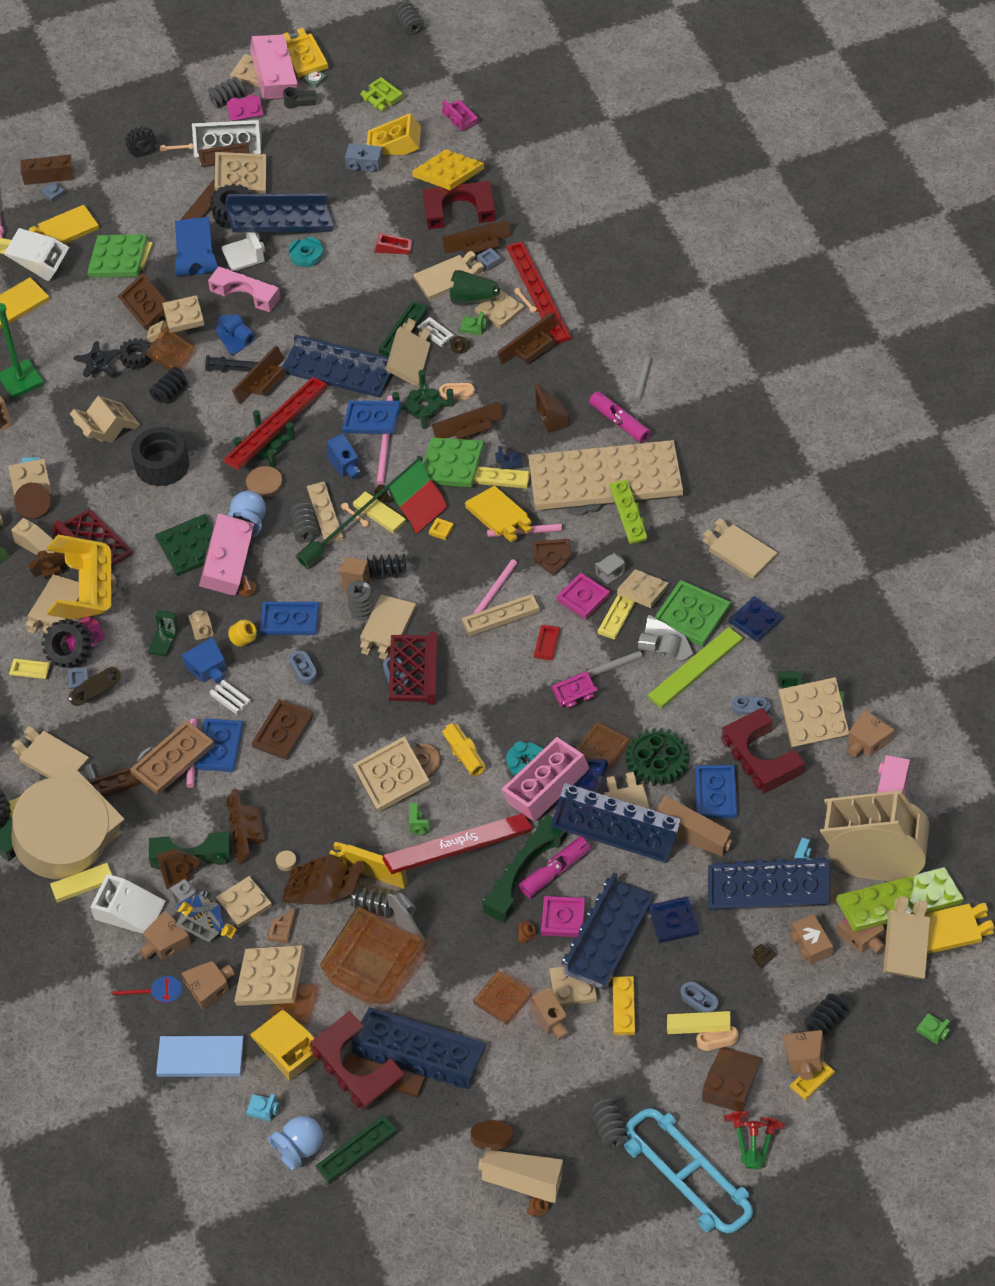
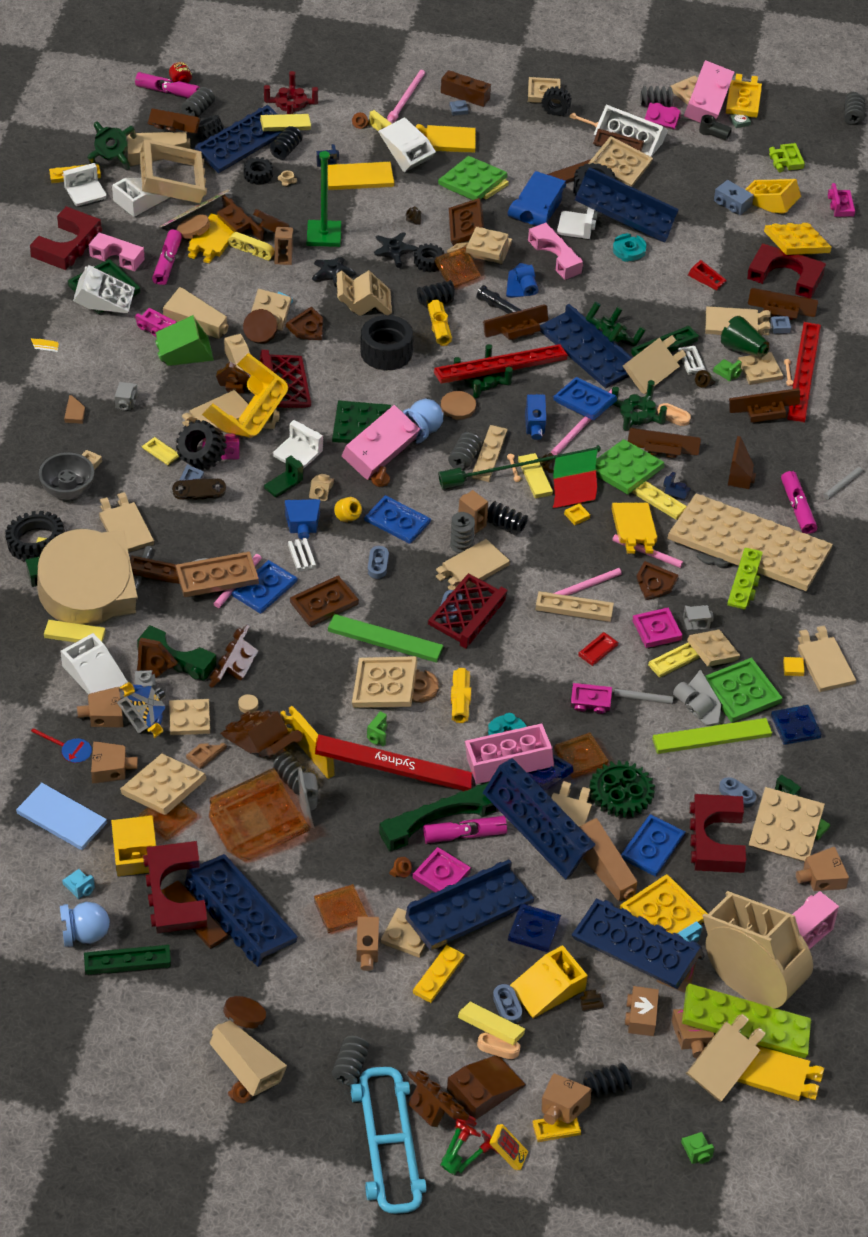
camera: 25 degrees right, 5 degrees down
(56, 411) = (330, 268): none -> black animal
(73, 477) = (307, 325): none -> reddish brown plate
(90, 319) = (413, 215): none -> dark brown plate
(114, 135) = (538, 86): none -> tan plate
(153, 594) = (302, 444): none -> white bracket
(191, 412) = (439, 322): none -> yellow piece
(353, 339) = (613, 331): none -> dark green plate
(360, 733) = (385, 638): none -> bright green tile
(702, 1118) = (431, 1101): none -> reddish brown bracket
(718, 568) = (793, 666): none -> yellow tile
(721, 959) = (550, 982): none -> yellow slope
(766, 839) = (665, 905): none -> yellow plate
(791, 1118) = (508, 1147): none -> tile

